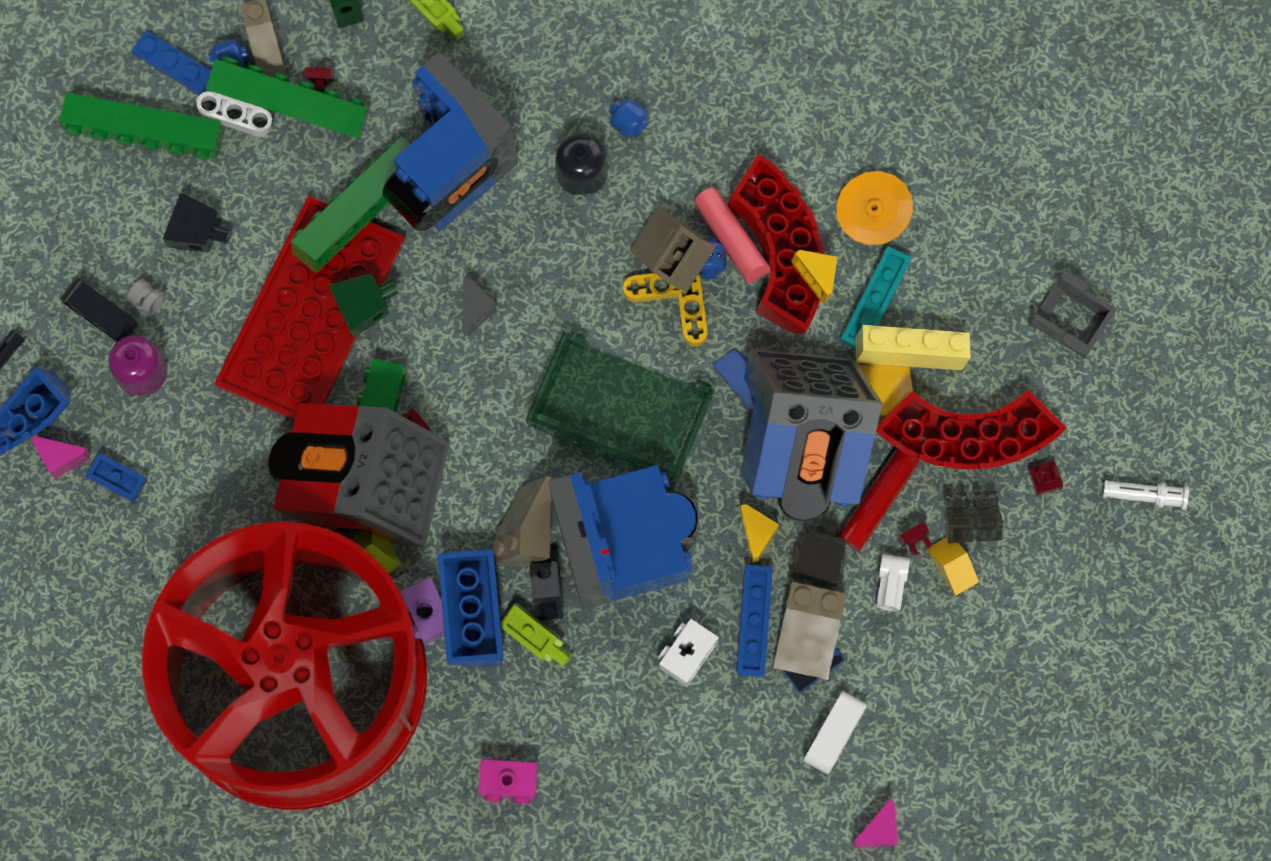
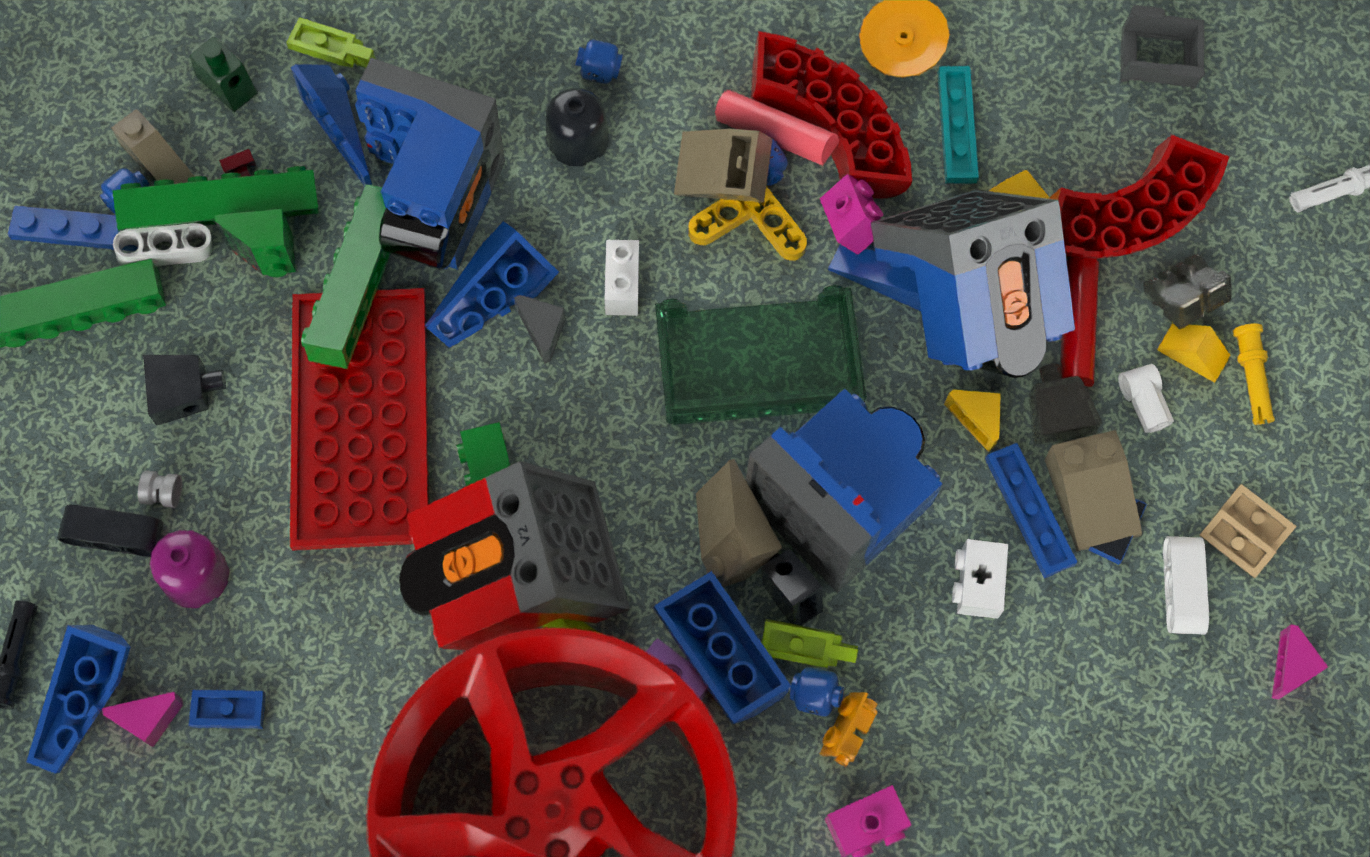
camera: 35 degrees left, 5 degrees down
(307, 145) = (260, 240): none -> green slope
(362, 301) = (415, 375): dark green torso -> none
(409, 54) = (328, 102): none -> blue wedge
(462, 252) = (495, 275): none -> blue wedge
(523, 671) = (816, 691): none -> blue head
(524, 713) = (854, 713): none -> light orange hinge
(552, 298) = (622, 277): none -> white brick
(747, 329) = (850, 212): none -> dark pink brick
(817, 271) = (892, 117): yellow slope -> none
(908, 717) = (1247, 531): none -> tan slope
(912, 347) = (1027, 150): light yellow brick -> none
(913, 536) = (1140, 341): dark red tile -> none
(991, 594) = (1252, 359): none -> yellow pin
(1045, 478) = (1231, 219): dark red tile -> none

